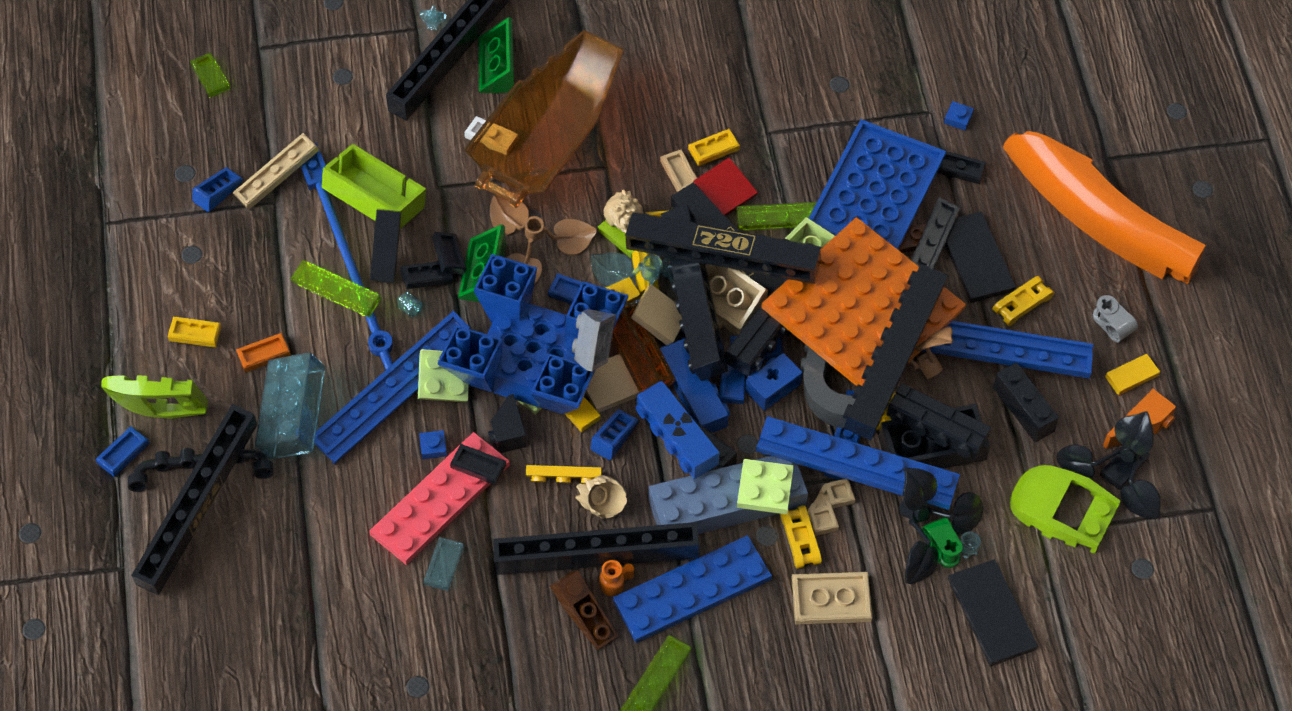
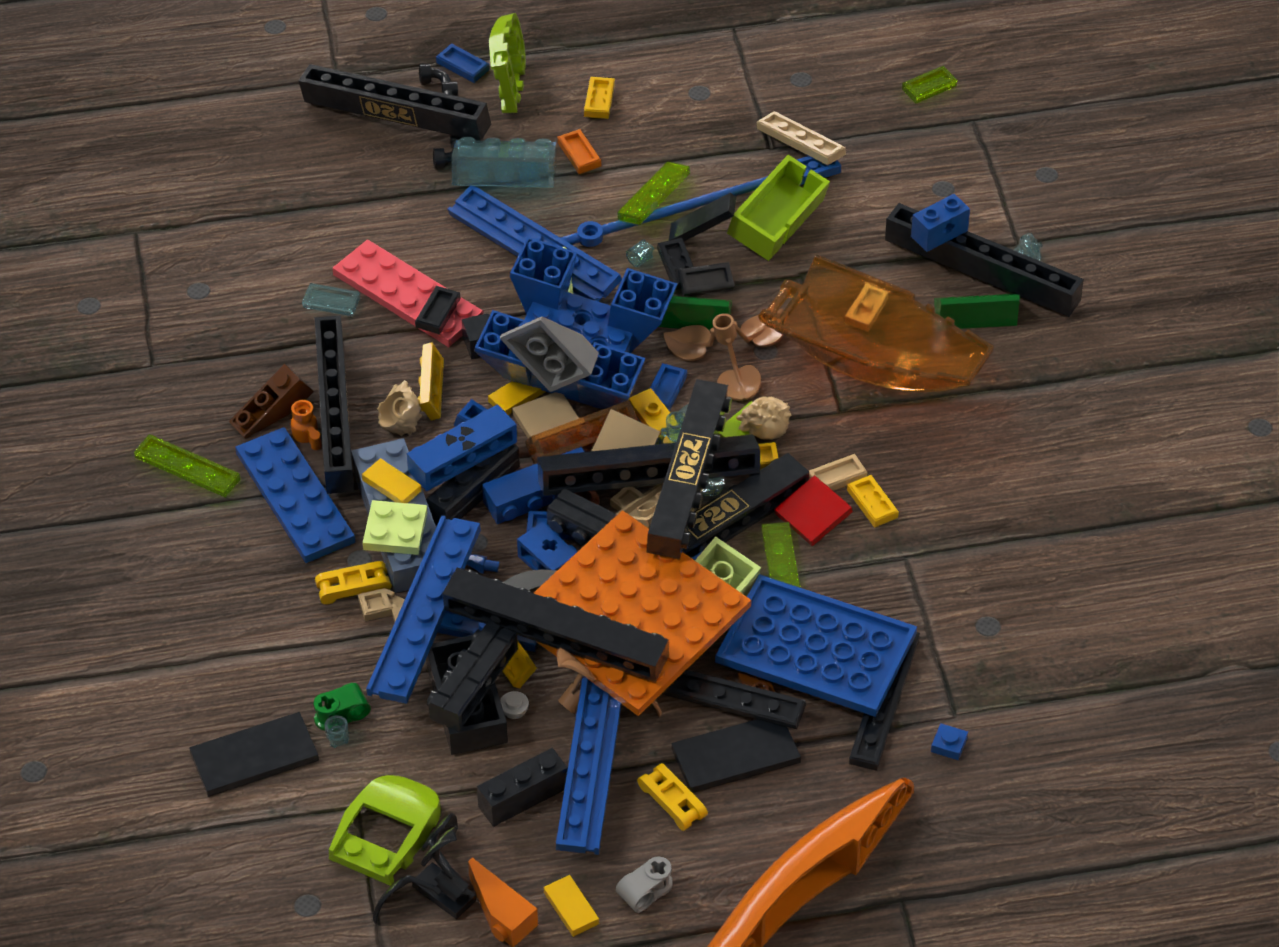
camera: 90 degrees right, 10 degrees down
(206, 199) = (770, 90): blue slope -> none
(426, 59) = (940, 222): none -> blue brick
(433, 444) = (470, 283): blue plate -> none
(712, 489) = (391, 482): none -> yellow tile
(831, 598) = (278, 612): tan tile -> none
(918, 489) = (374, 646): black plant -> none

